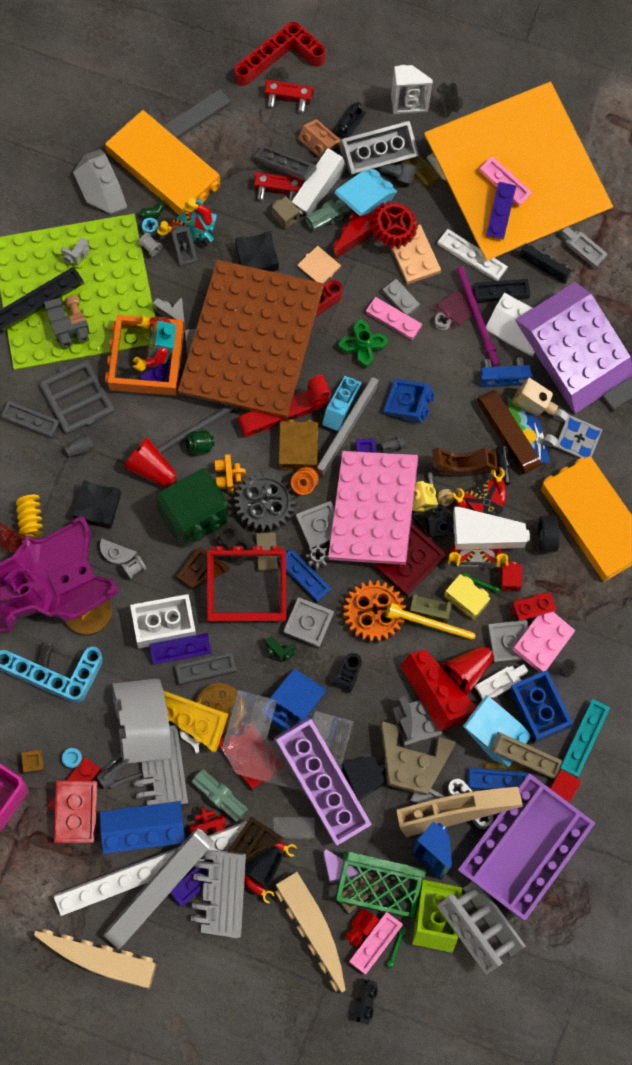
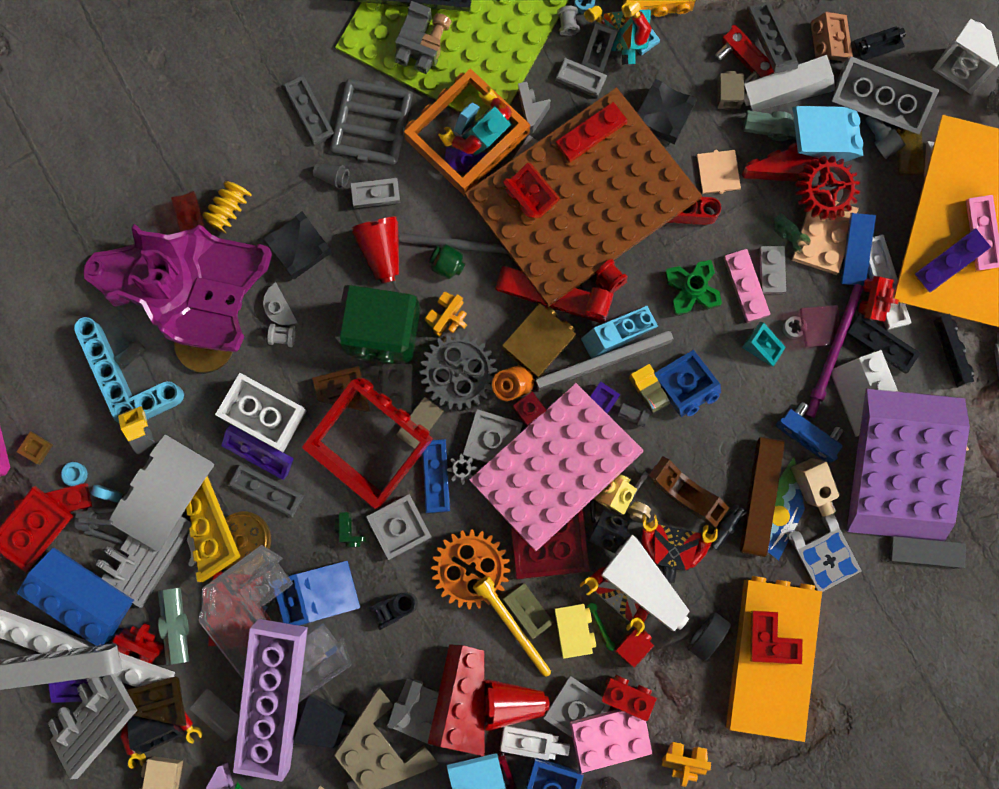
camera: 45 degrees right, 10 degrees up
(91, 693) = (134, 428): none -> yellow leg
(105, 750) = (106, 493): none -> medium azure tile
(118, 436) = (375, 193): none -> light grey plate
(142, 343) = (466, 118): none -> medium azure tile
(186, 273) = (581, 78): none -> light grey tile
(220, 355) = (531, 191): none -> red bracket
(225, 296) = (591, 132): none -> red plate
(308, 371) = (610, 277): none -> red piece
(327, 489) = (529, 409): none -> dark red brick
(388, 421) = (649, 388): none -> leg
(390, 267) = (788, 230): none -> clear green plate
(433, 343) = (764, 344): none -> teal slope
(440, 247) = (858, 249): none -> blue tile
(478, 264) = (879, 299): none -> red hips
(586, 509) = (767, 646): none -> red plate
(599, 621) = (696, 764): none -> light orange hips

